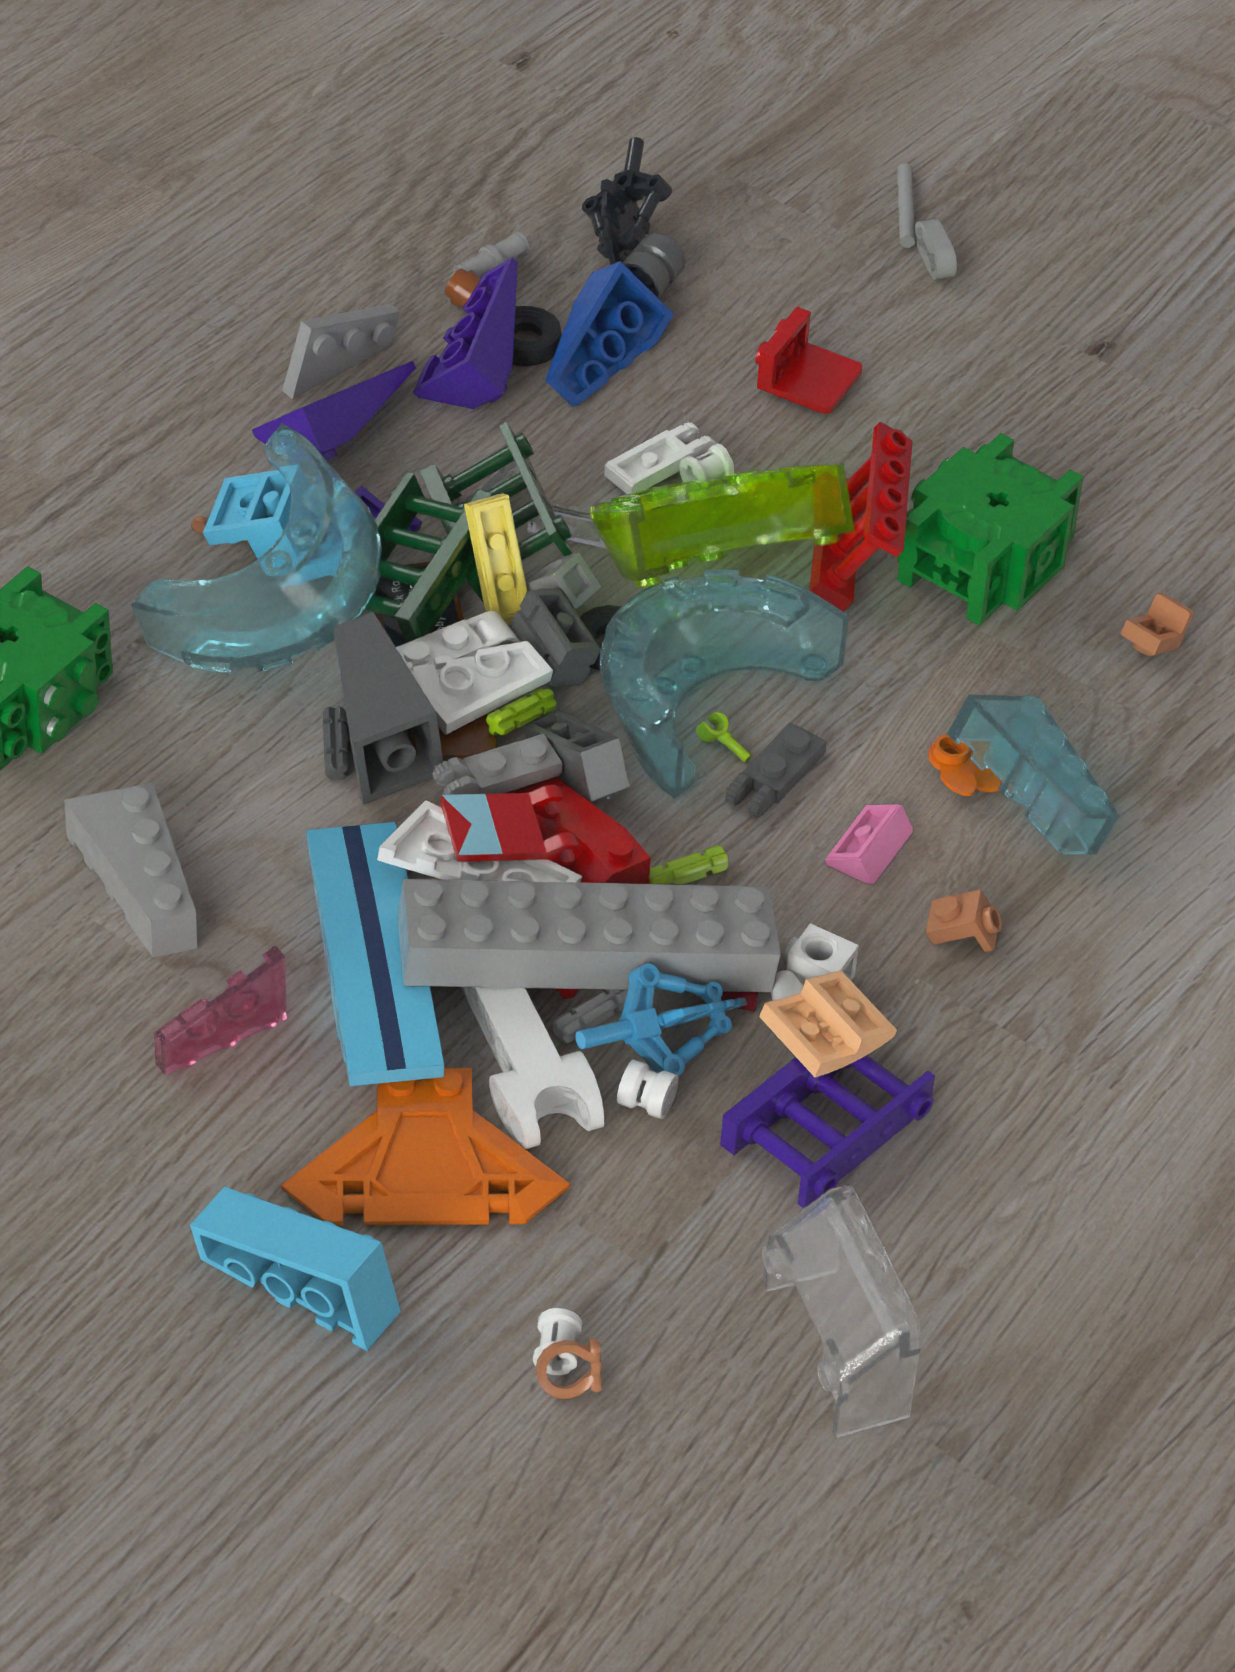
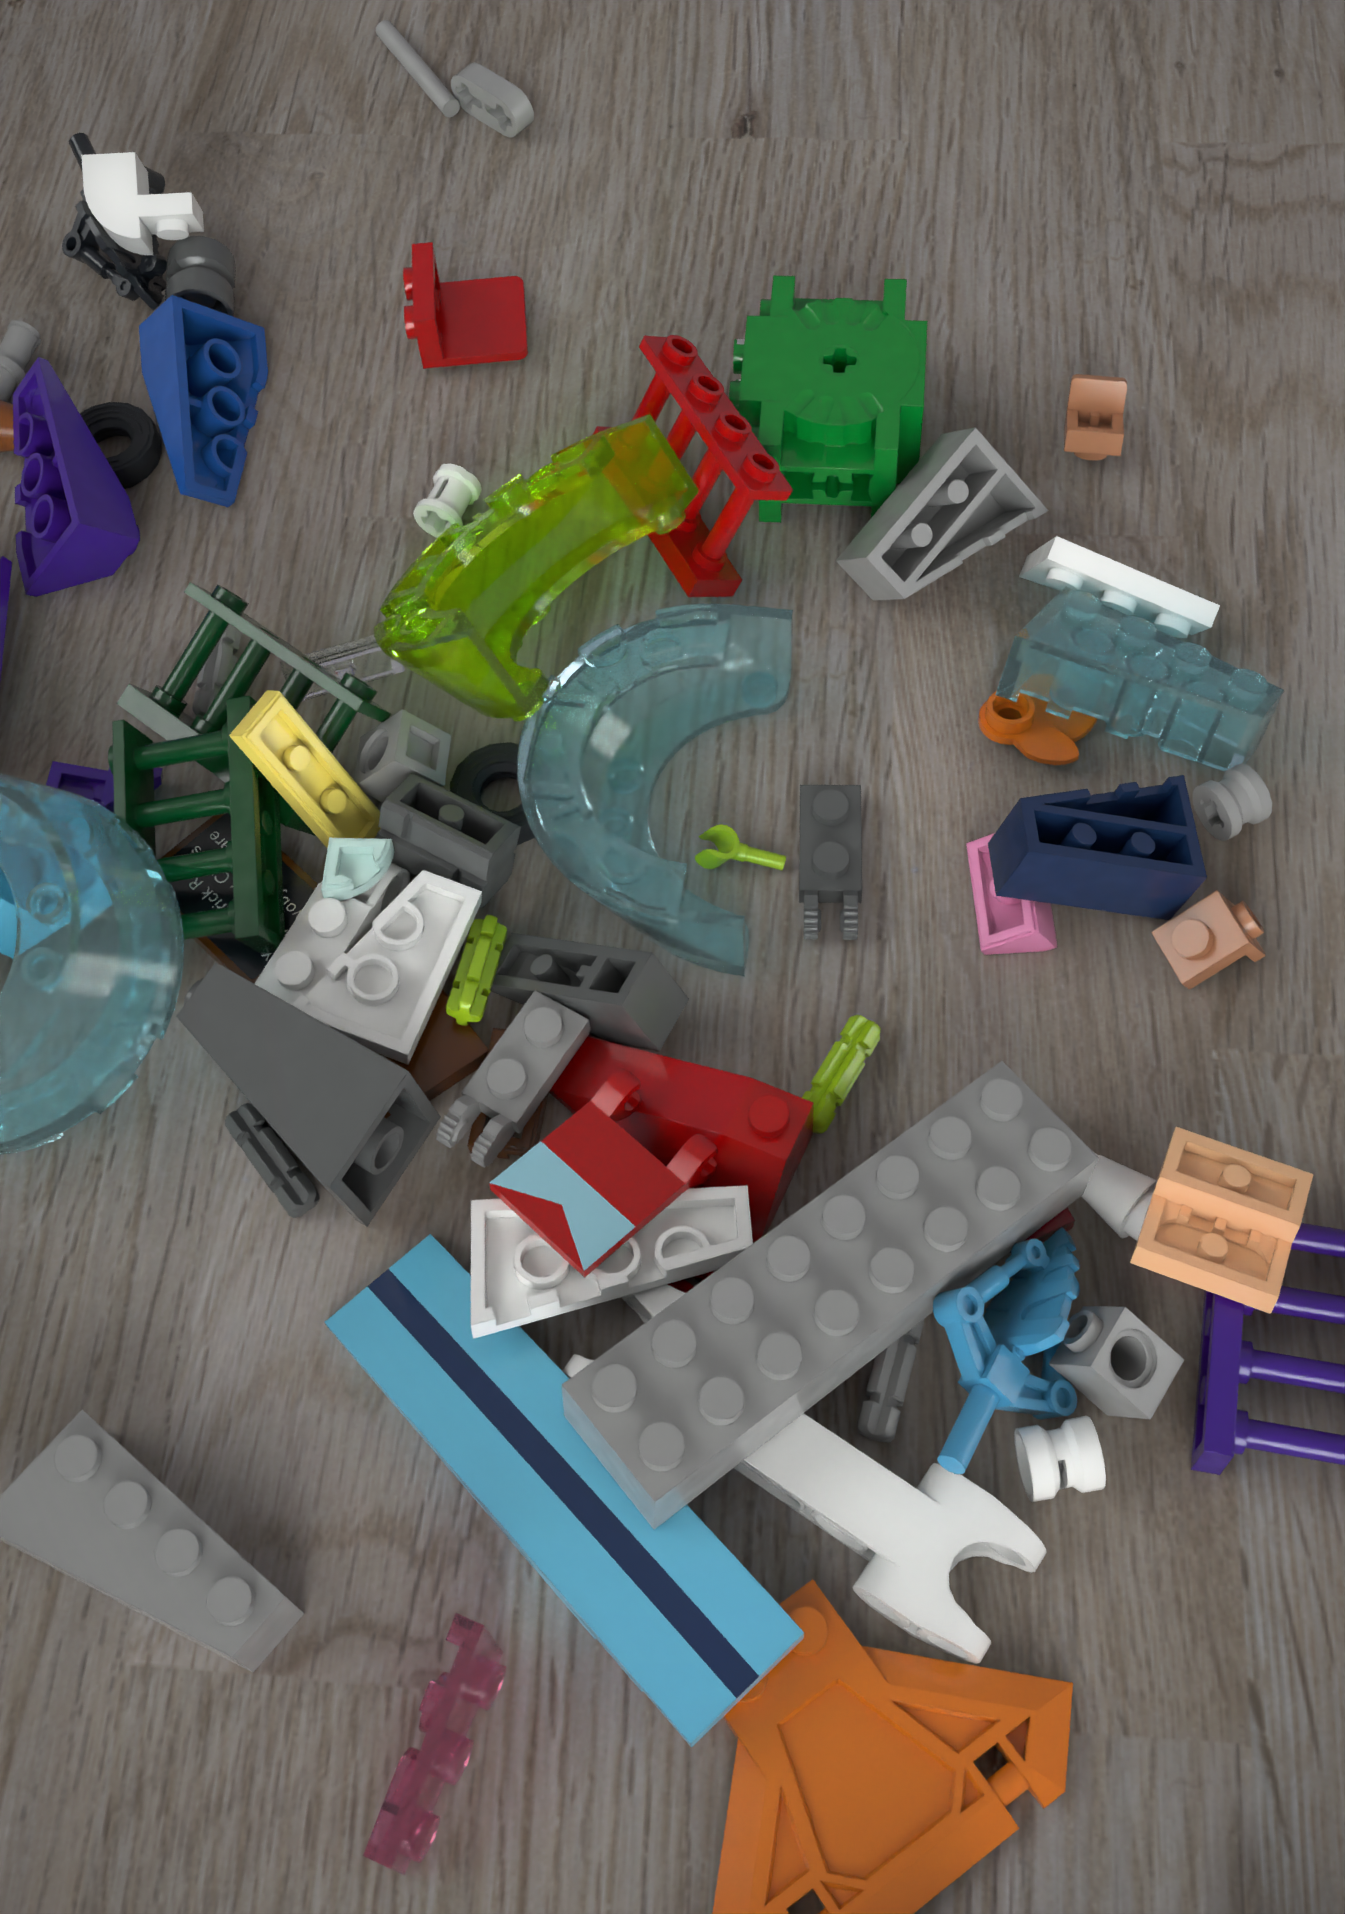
camera: 25 degrees left, 15 degrees up
(490, 619) = (355, 866): none -> light aqua tile
(630, 196) = (120, 201): none -> white brick
(656, 458) = (381, 523): white hinge -> none
(705, 1077) = (1139, 1367): none -> light grey brick
(820, 953) = (1125, 1092): white brick -> none
(926, 832) = (1103, 850): none -> dark blue wedge
(999, 624) = (939, 516): none -> light grey wedge
(1042, 862) = (1232, 802): none -> light grey wheel
(1076, 719) = (1119, 587): none -> white wing

